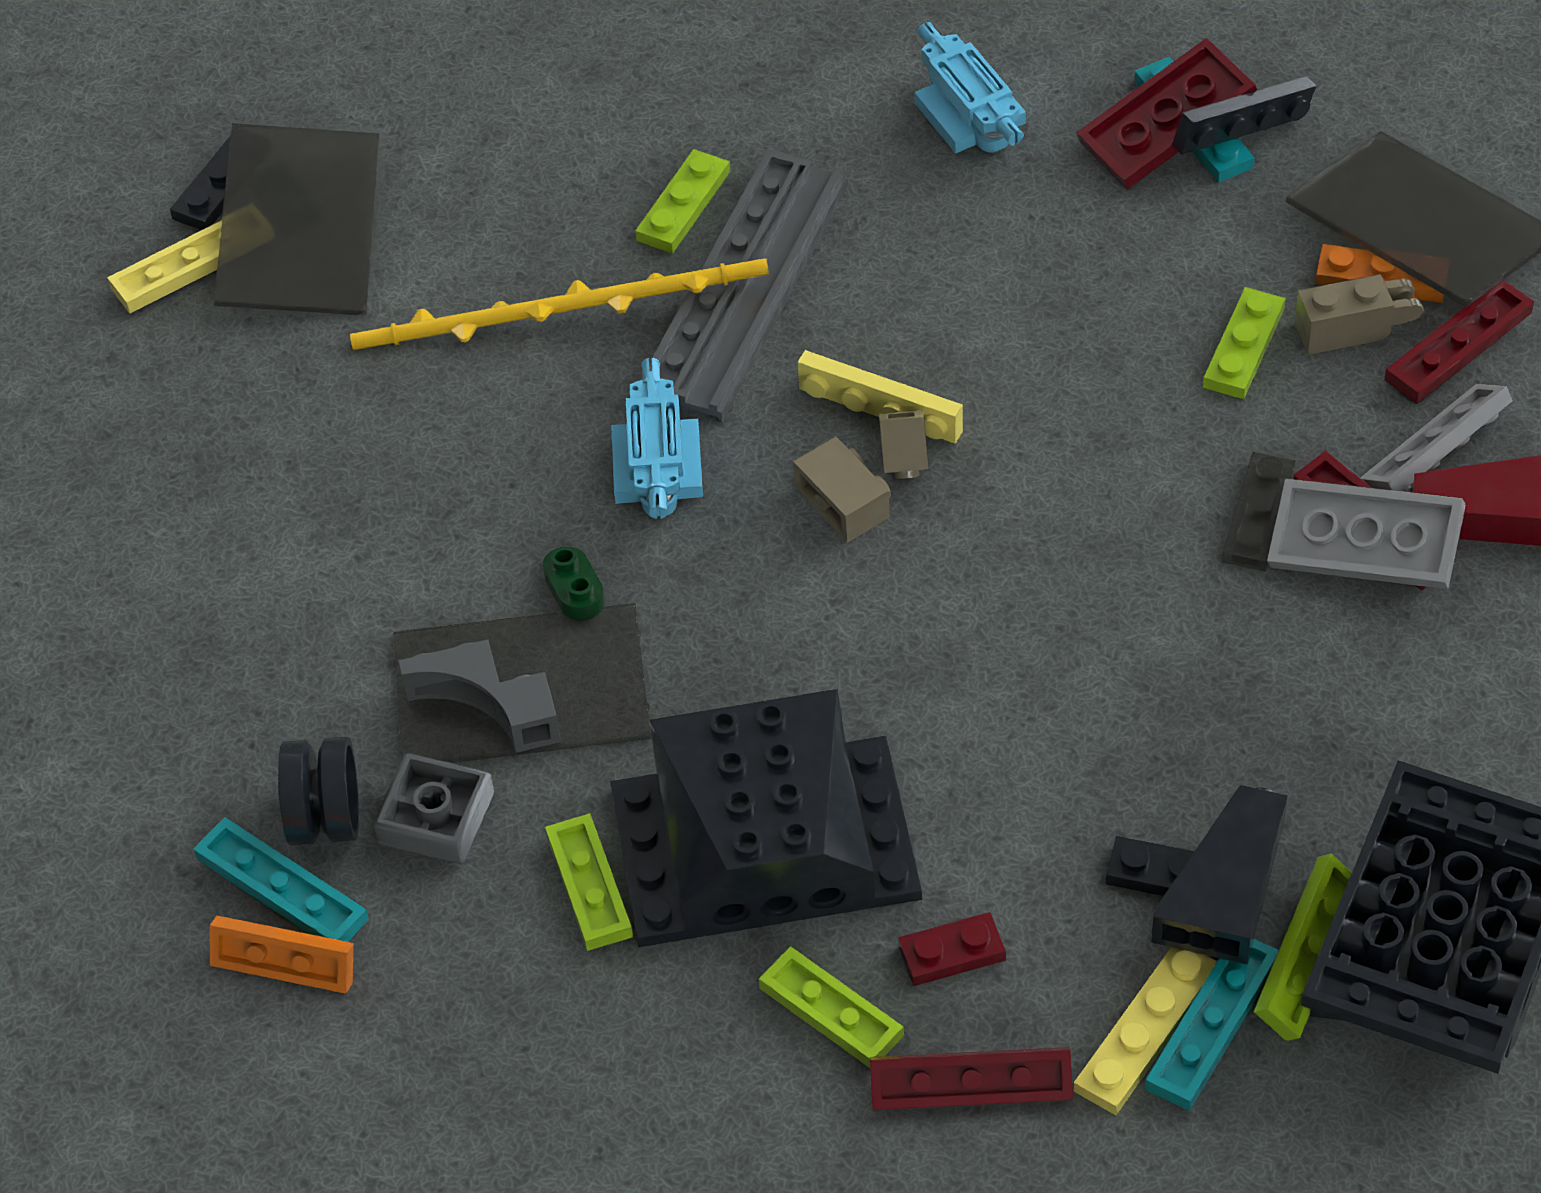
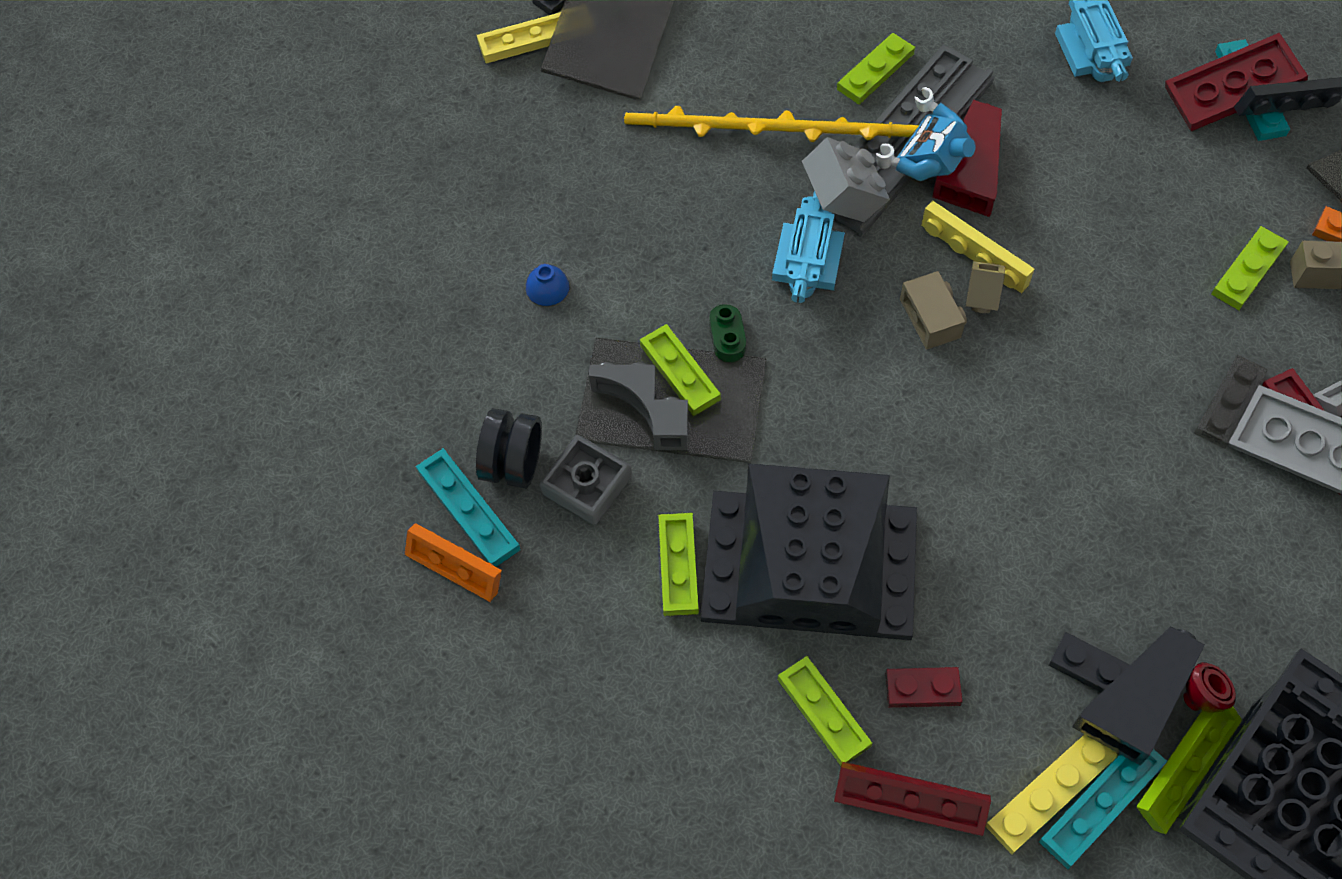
camera: 15 degrees right, 10 degrees up
(305, 580) = (547, 285): none -> blue brick
(522, 641) = (680, 369): none -> lime plate
(681, 347) = (845, 179): none -> light grey brick
(788, 281) = (934, 146): none -> dark azure torso
(845, 294) = (976, 177): none -> dark red slope
(1306, 849) = (1209, 689): none -> dark red brick

